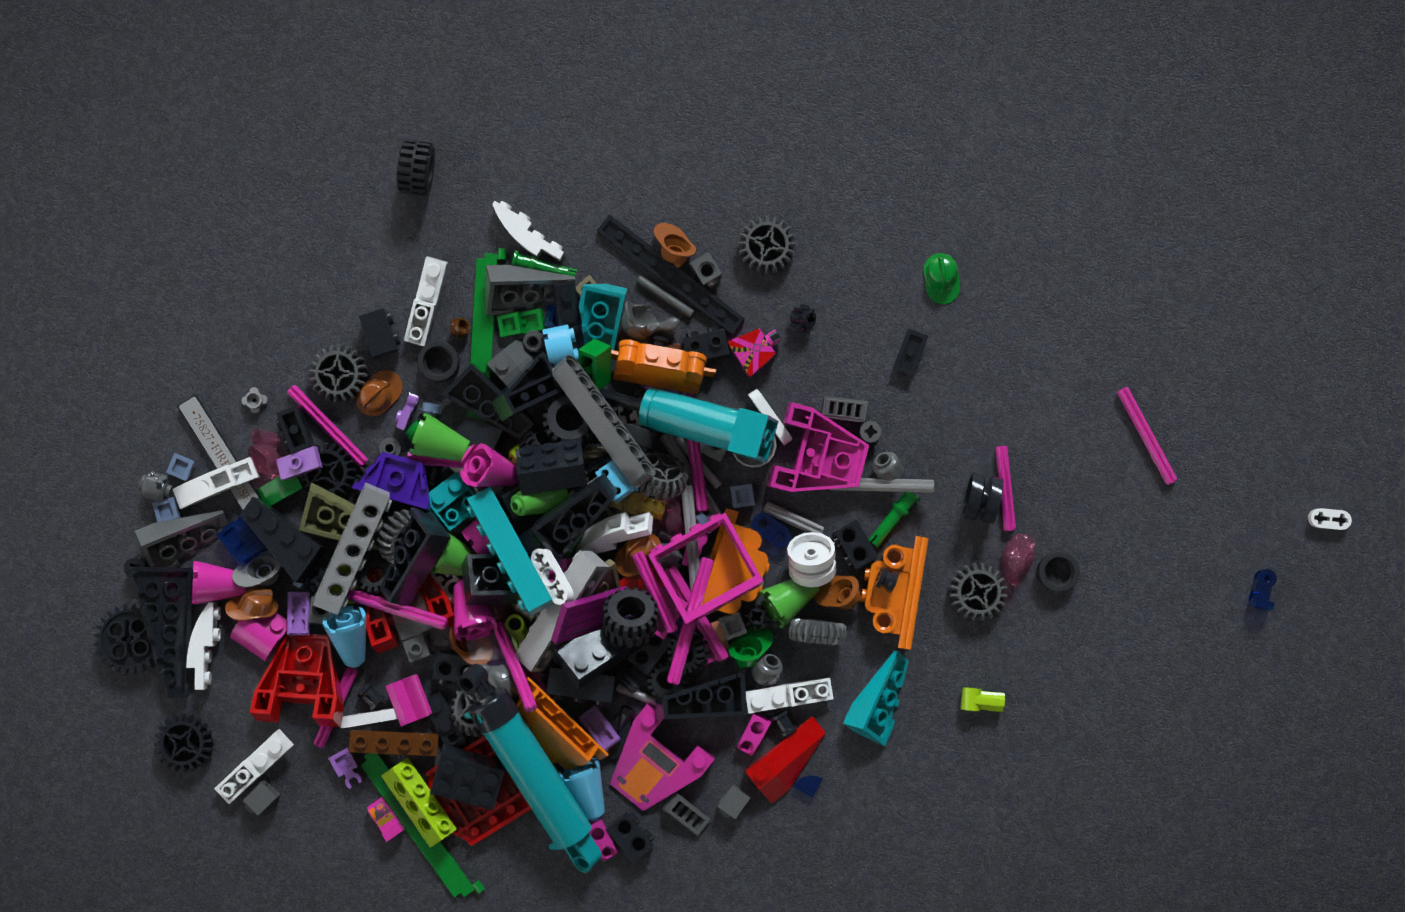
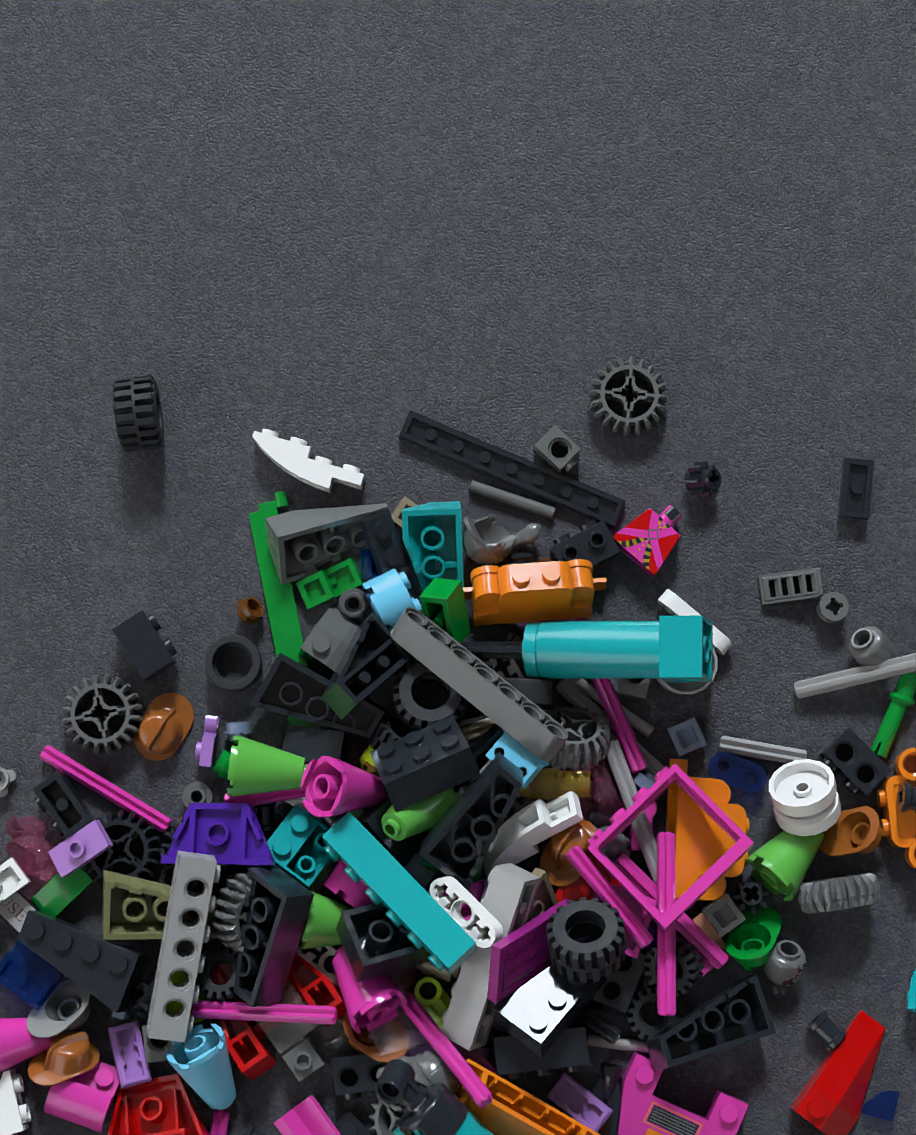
camera: 15 degrees left, 5 degrees down
(426, 301) = (196, 587): white slope -> none
(533, 262) = (325, 499): green pin -> none
(674, 244) = (506, 427): dark orange piece -> none
(753, 733) = (789, 1054): dark pink leg -> none
(788, 695) = (823, 989): white slope -> none
(825, 456) = (782, 654): dark pink wedge -> none
(941, 278) = (869, 382): green piece -> none

